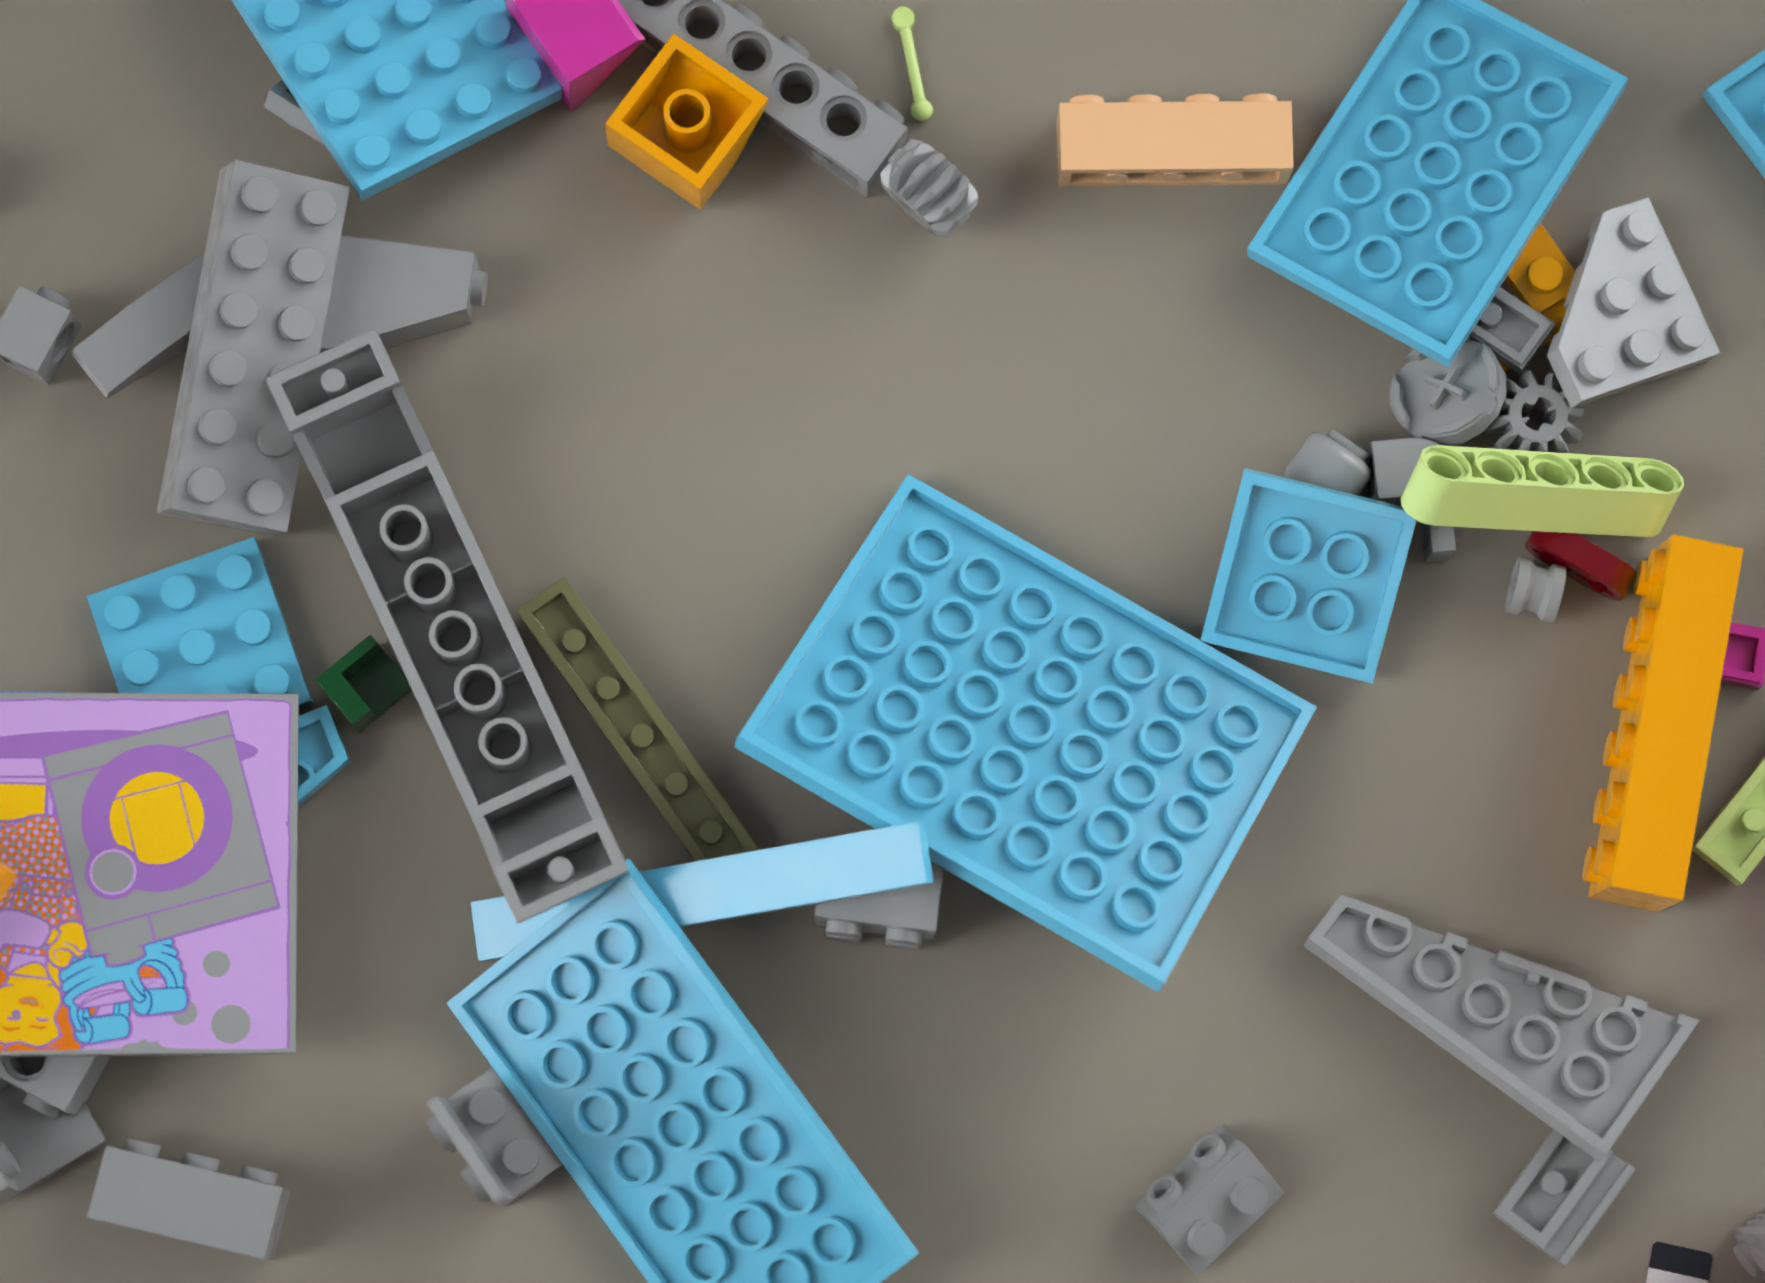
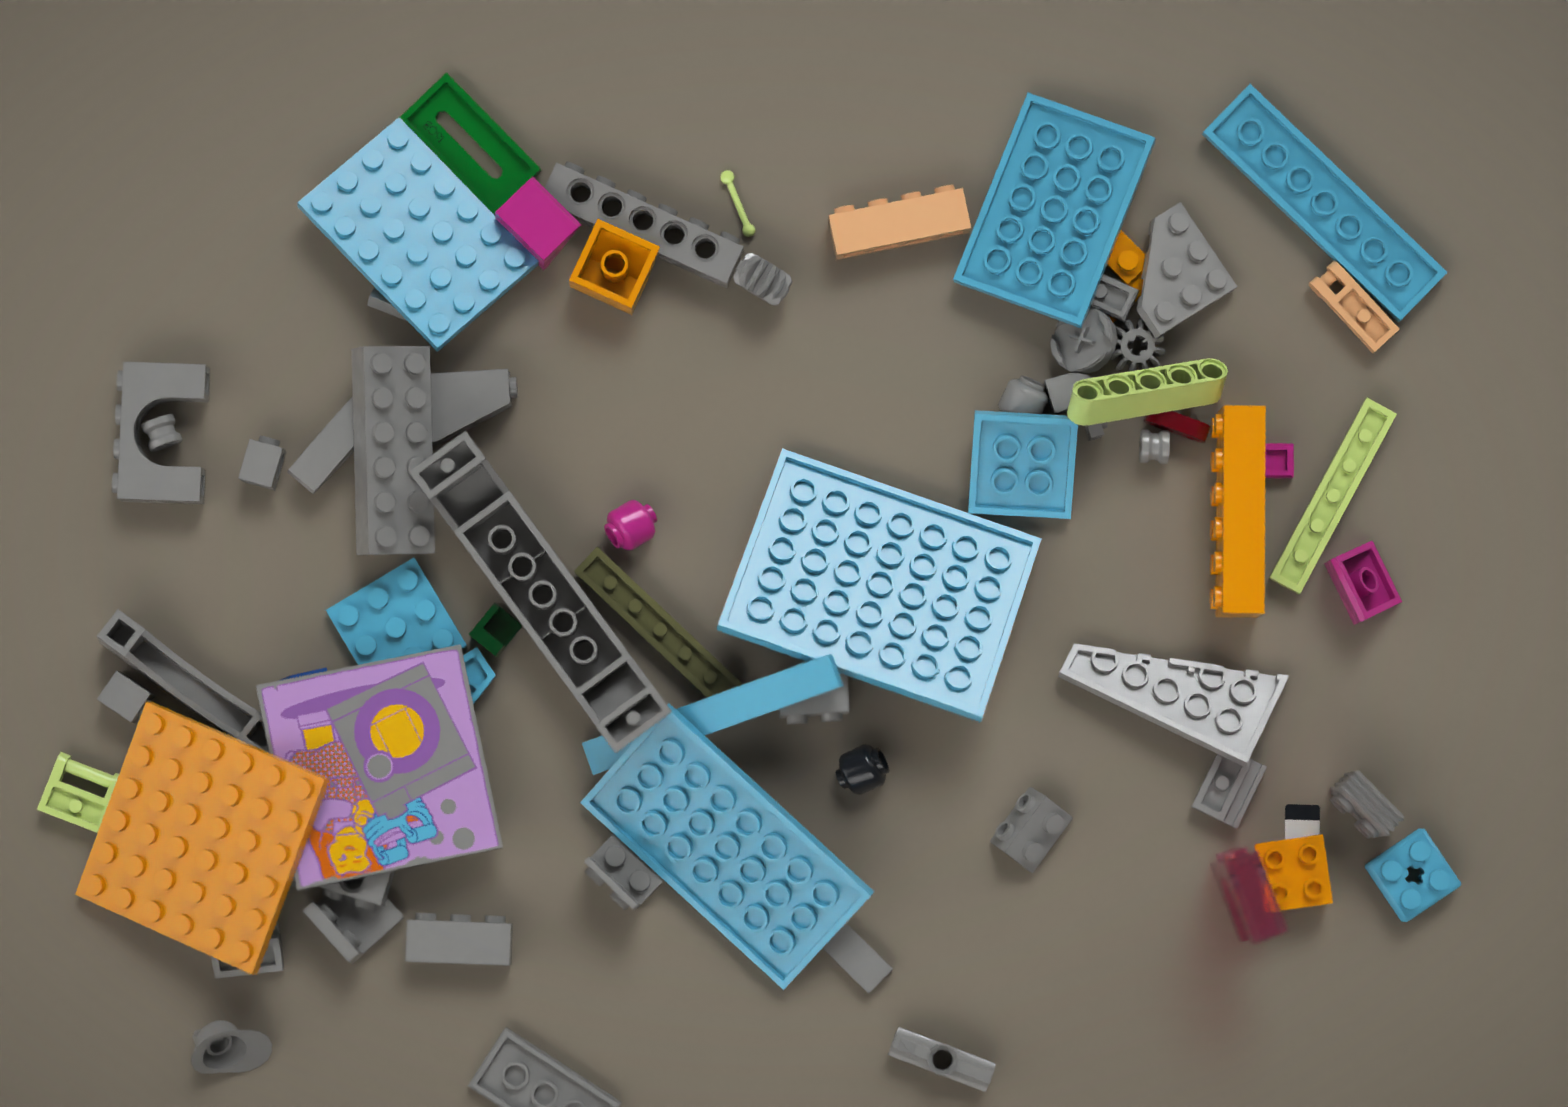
camera: 10 degrees left, 5 degrees up
(628, 552) = (630, 525): none -> dark pink head
(939, 1039) = (862, 769): none -> black head

